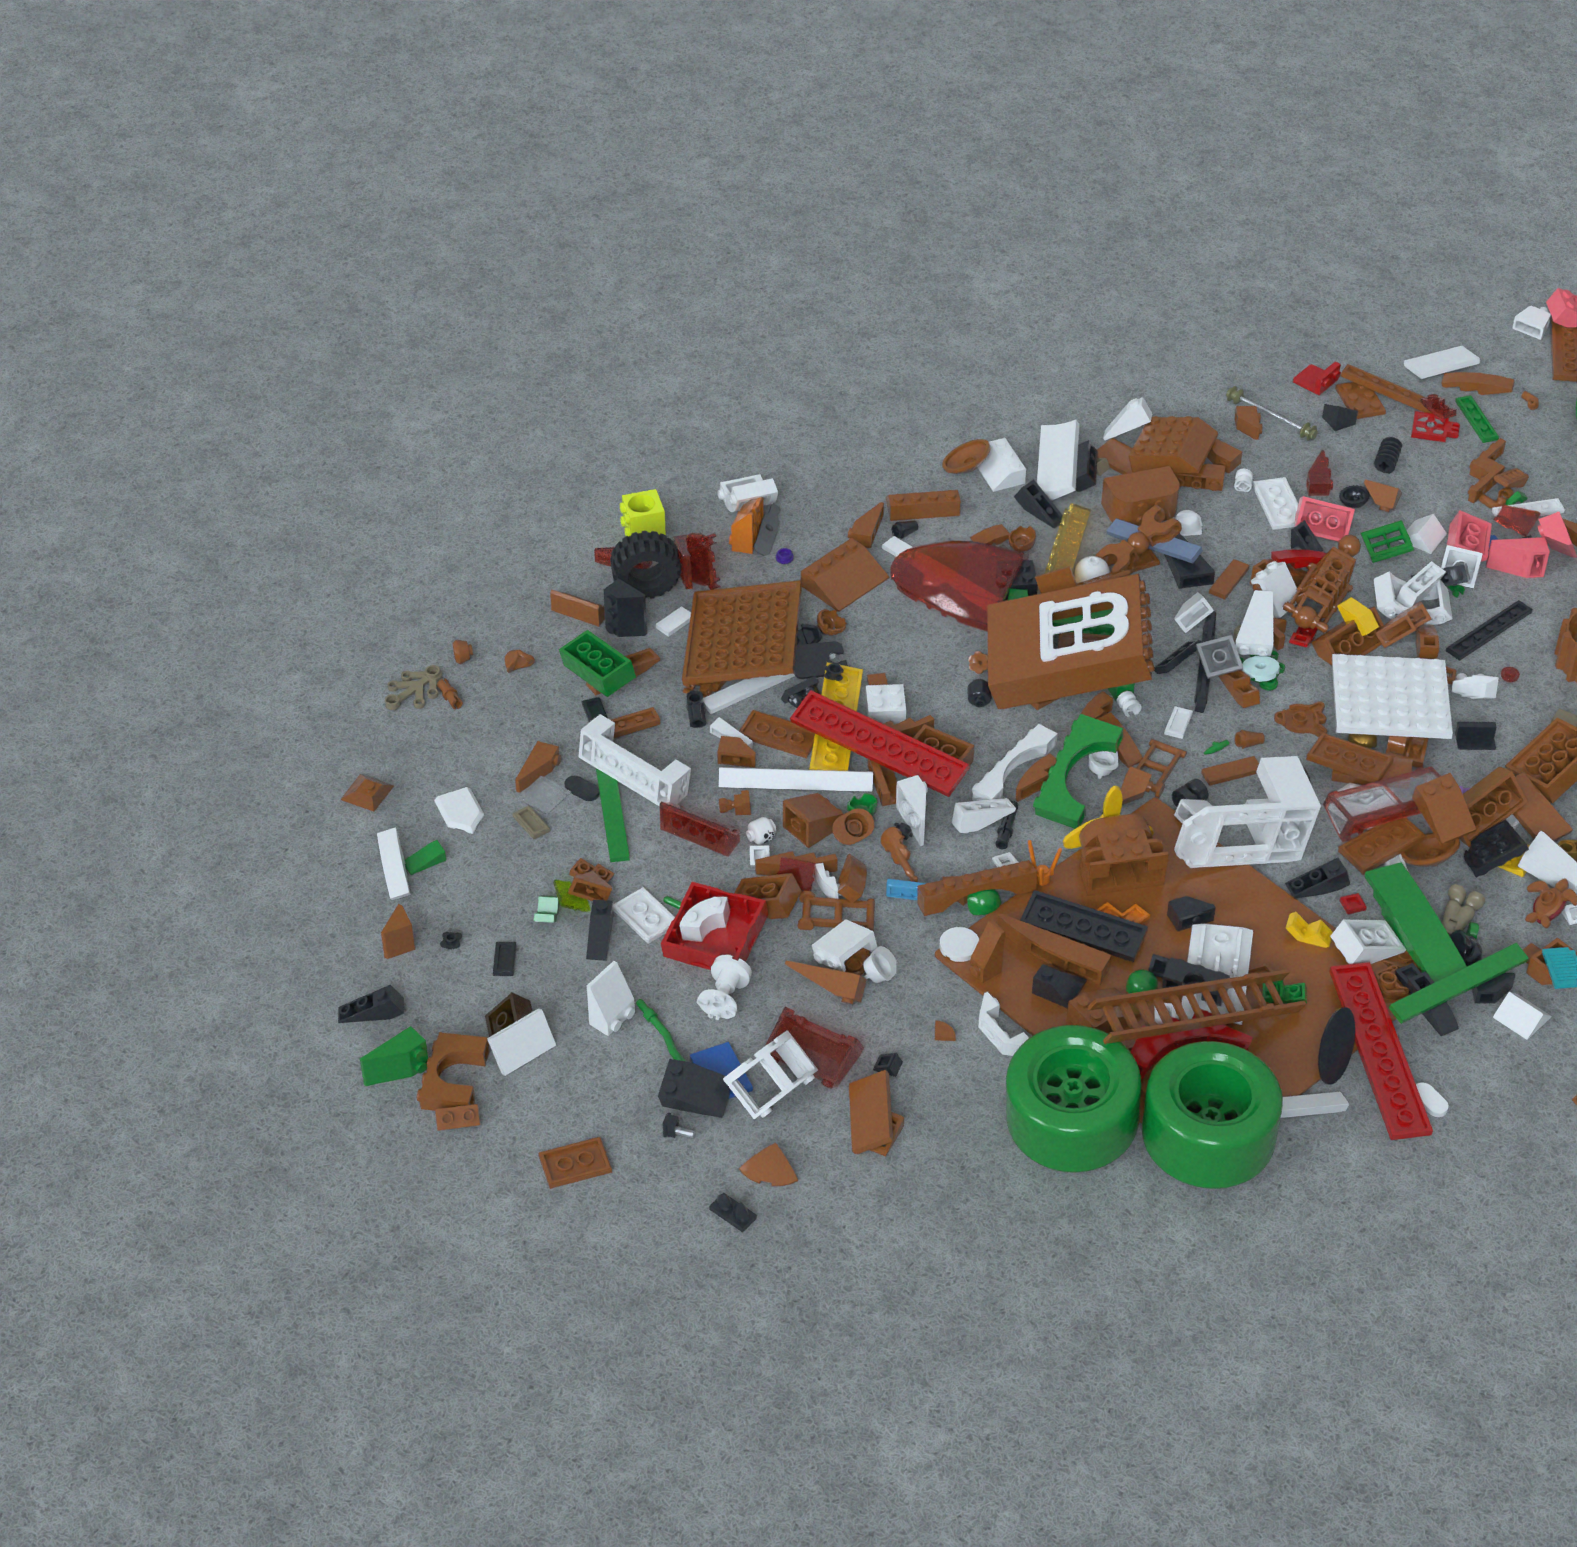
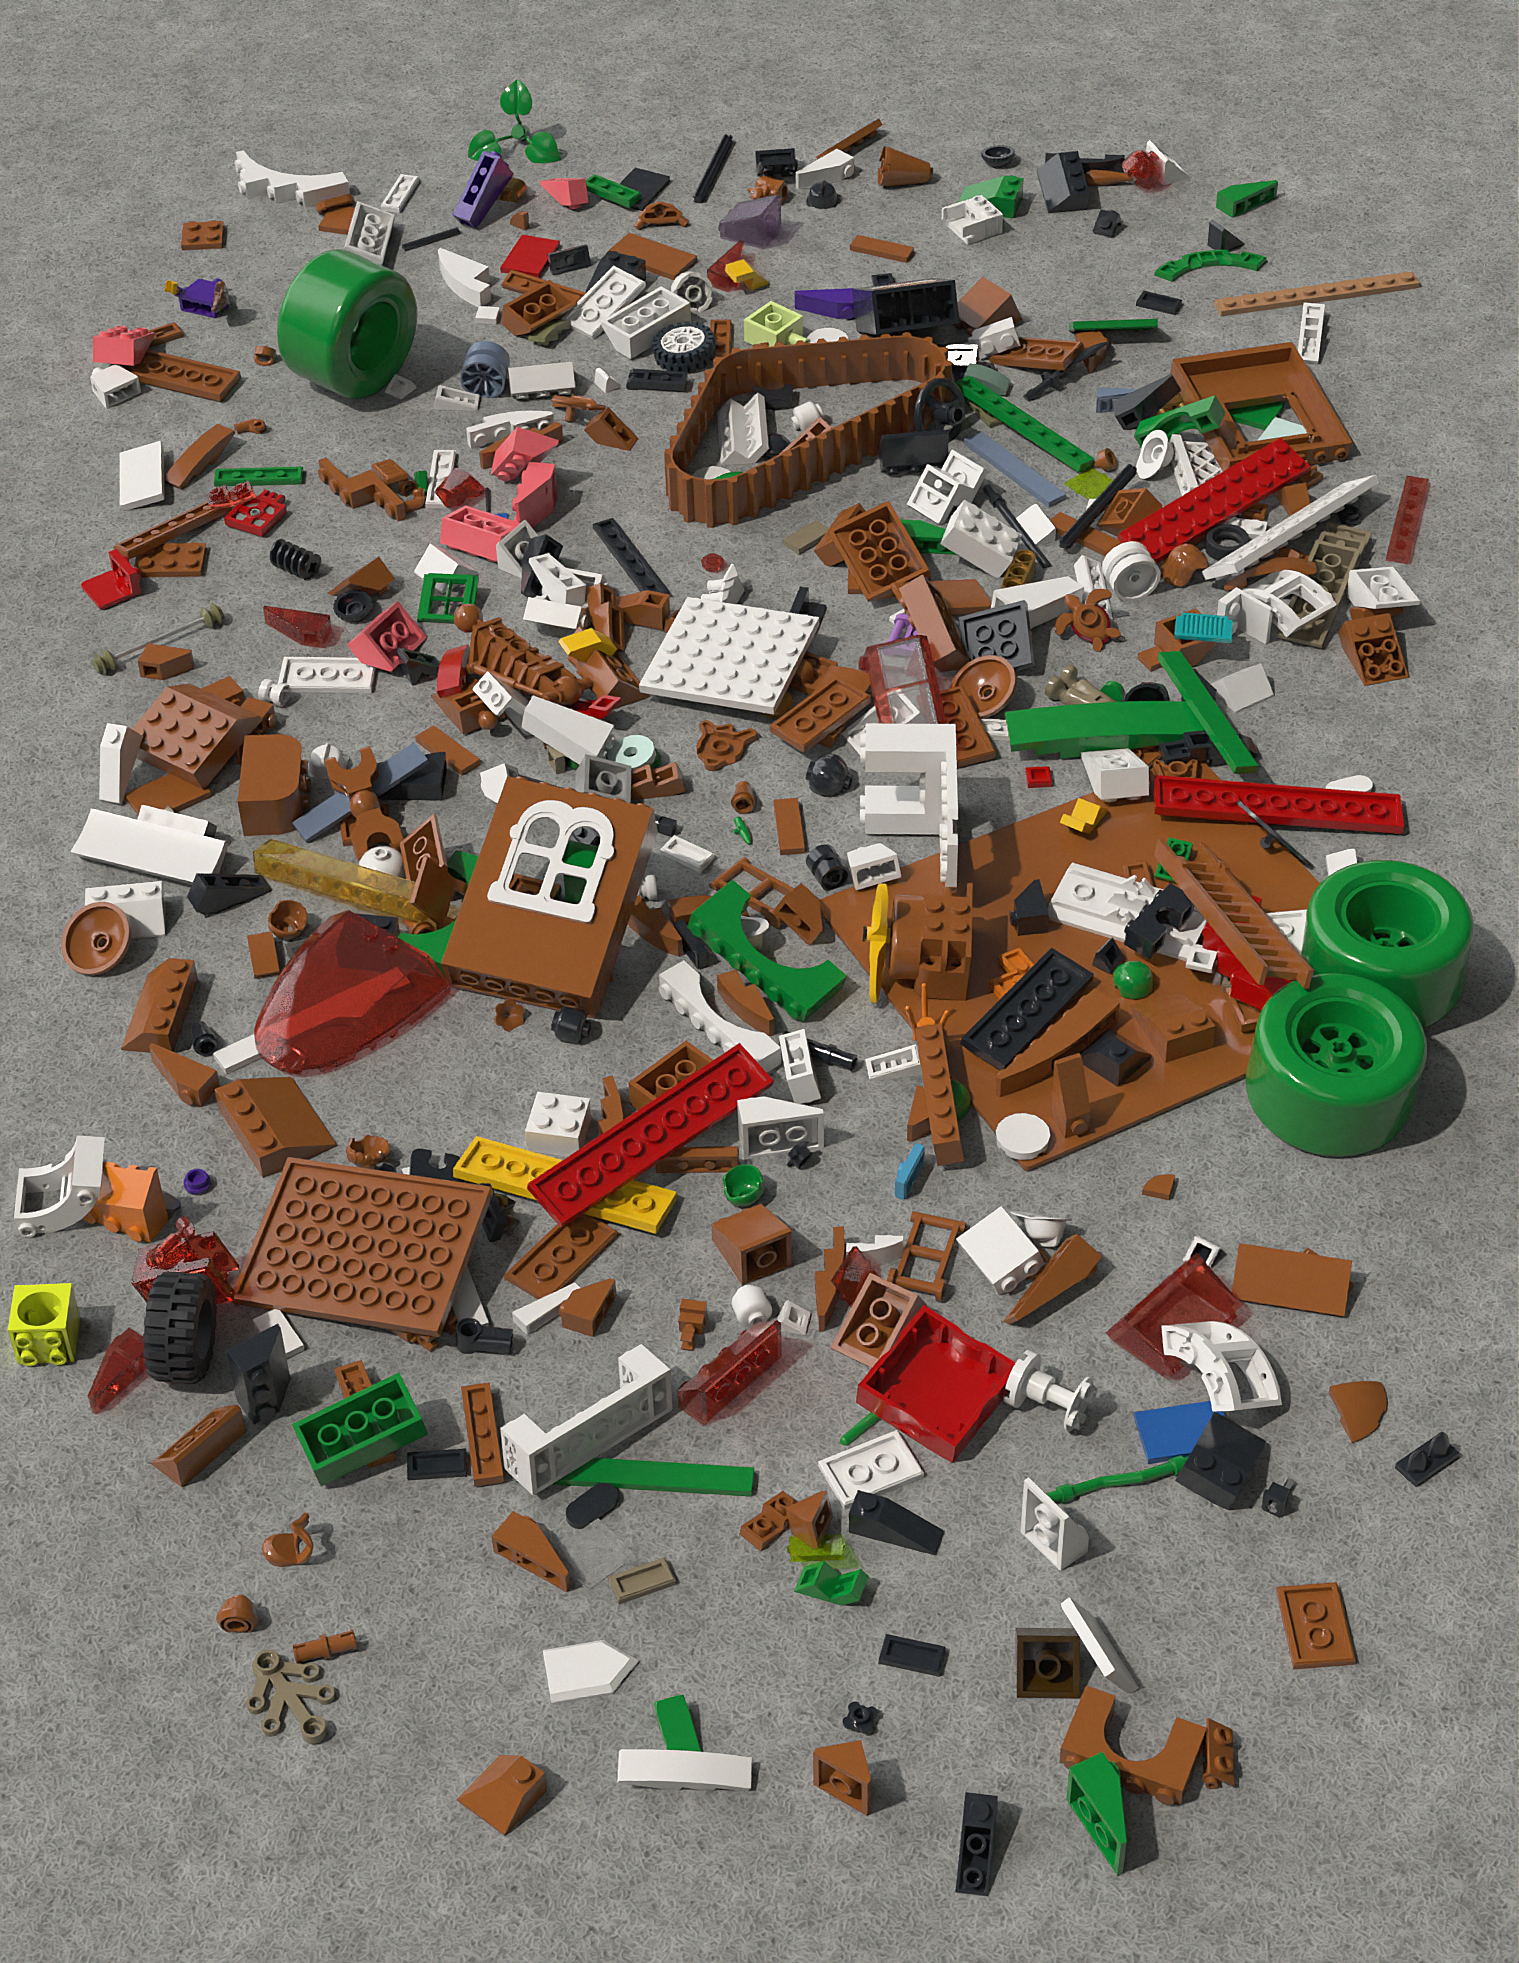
camera: 75 degrees left, 0 degrees up
(704, 917) = (919, 1389): white brick -> none
(795, 779) = (663, 1251): white tile -> none
(833, 672) = (482, 1161): black plate -> none
(852, 879) = (879, 1219): dark orange slope -> none
(853, 826) = (784, 1199): dark orange piece -> none
(877, 679) = (500, 1129): dark orange tile -> none
(893, 842) = (818, 1167): dark orange piece -> none
(989, 1026) = (1140, 1134): white slope -> none
(1320, 881) = (1002, 789): black slope -> none
(1339, 417) = (196, 584): black slope -> none
(1444, 808) = (950, 646): dark orange slope -> none

